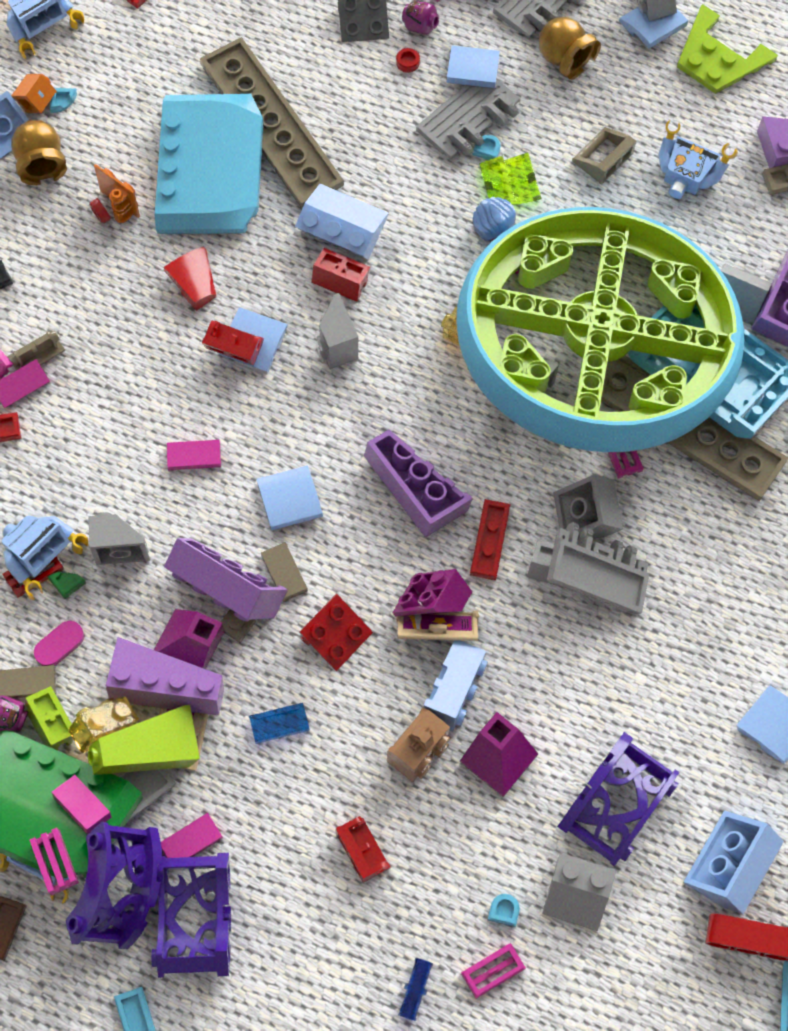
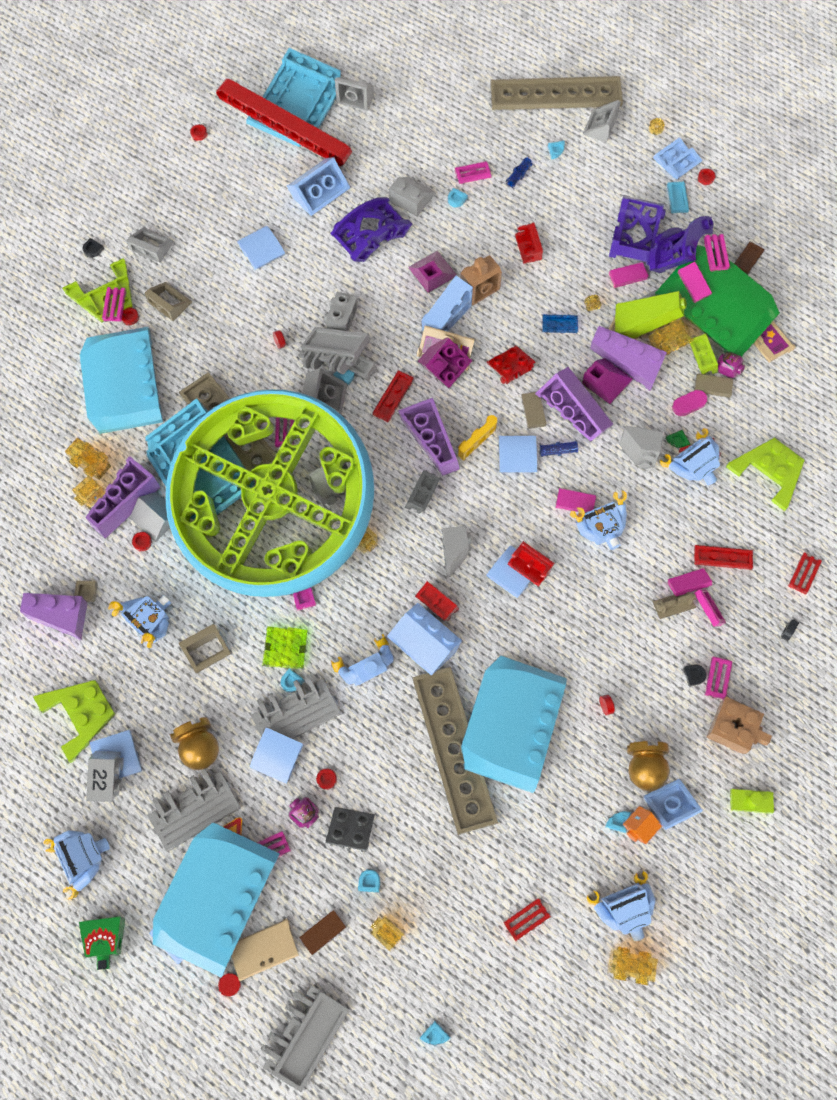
camera: 160 degrees left, 0 degrees up
(120, 194) = (586, 702): orange hinge -> none
(150, 426) = (604, 522): none -> light blue torso
(193, 277) = (546, 631): slope -> none
(234, 520) = (558, 448): none -> clear blue pin
(236, 767) = (592, 302): none -> clear yellow bush
(351, 503) = (477, 437): none -> yellow plate
(400, 173) = (368, 667): none -> light blue torso
(403, 405) = (422, 492): none -> dark grey hinge
(493, 217) = (310, 614): medium blue hair -> none
(610, 638) = (341, 311): none -> light grey brick
(684, 576) = (279, 339): none -> red tile
(741, 257) = (141, 541): none -> red tile

